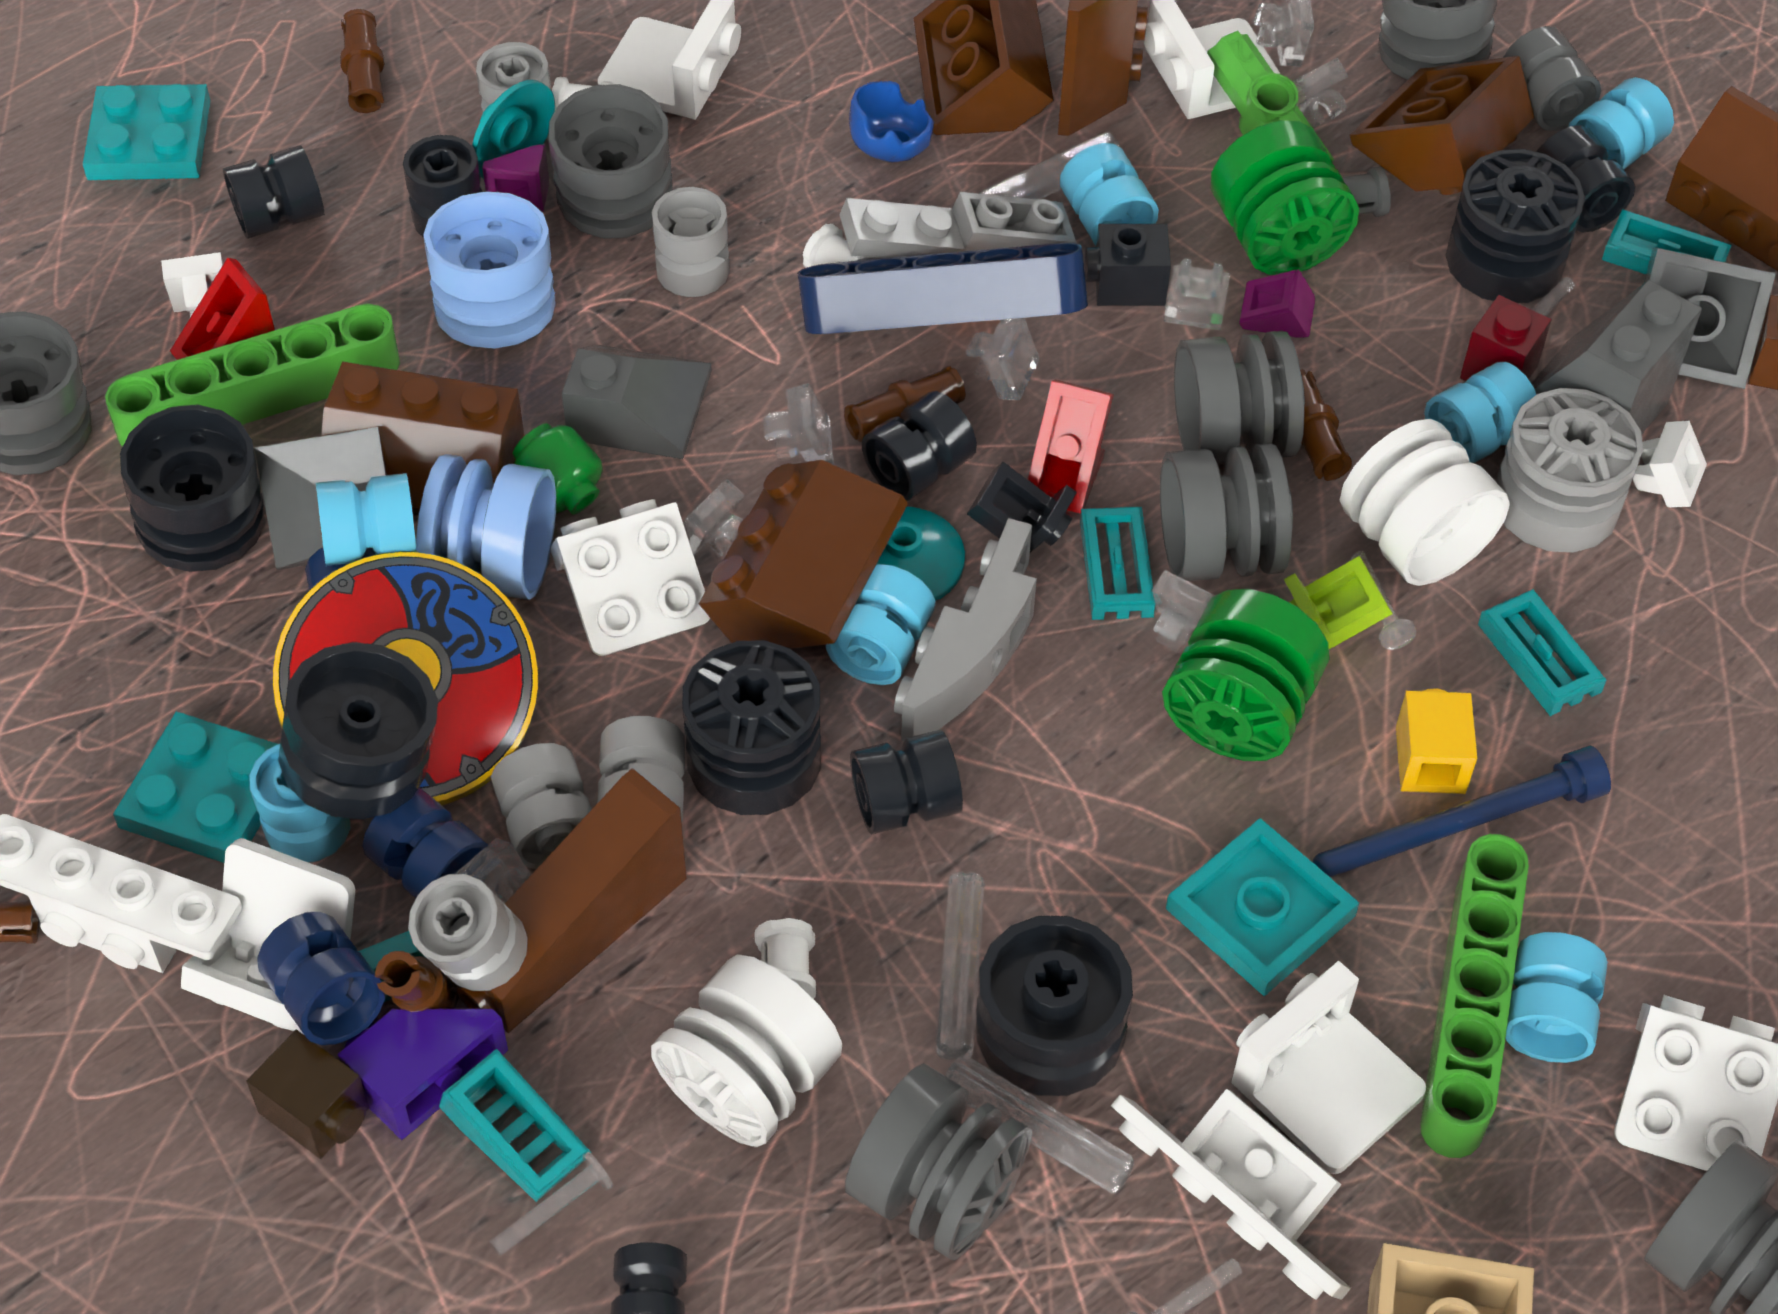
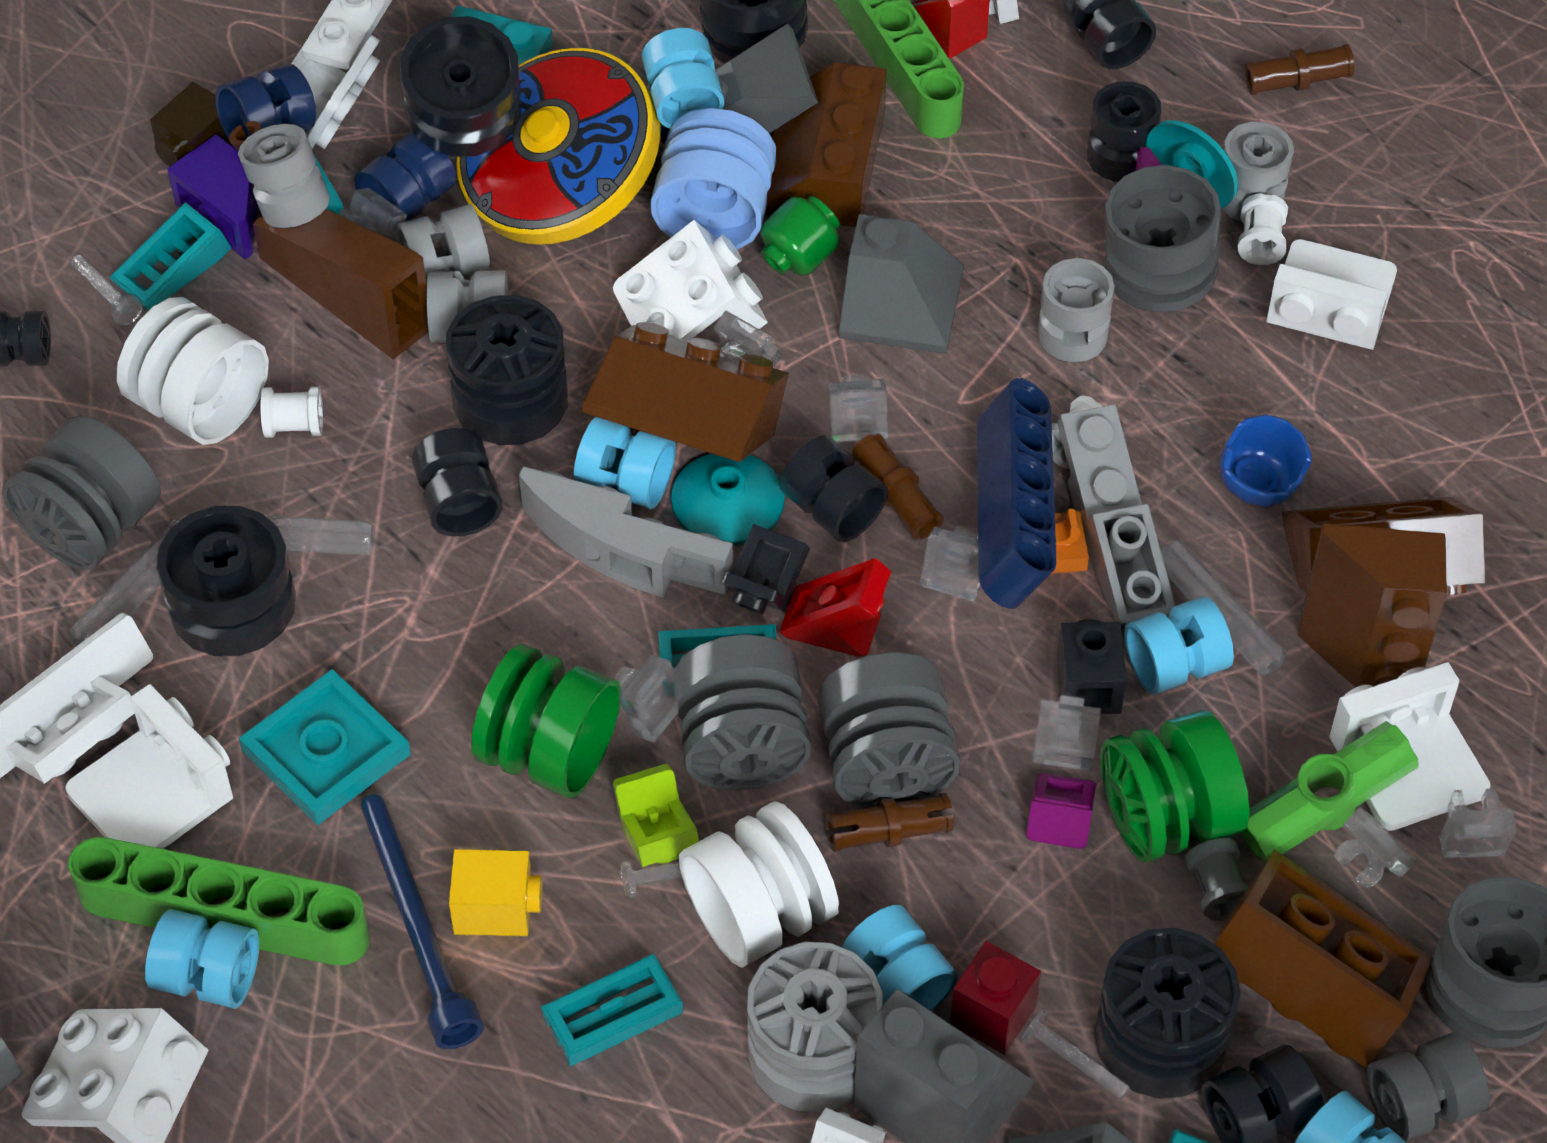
camera: 90 degrees right, 0 degrees up
(490, 269) = (1013, 162): light blue wheel -> none

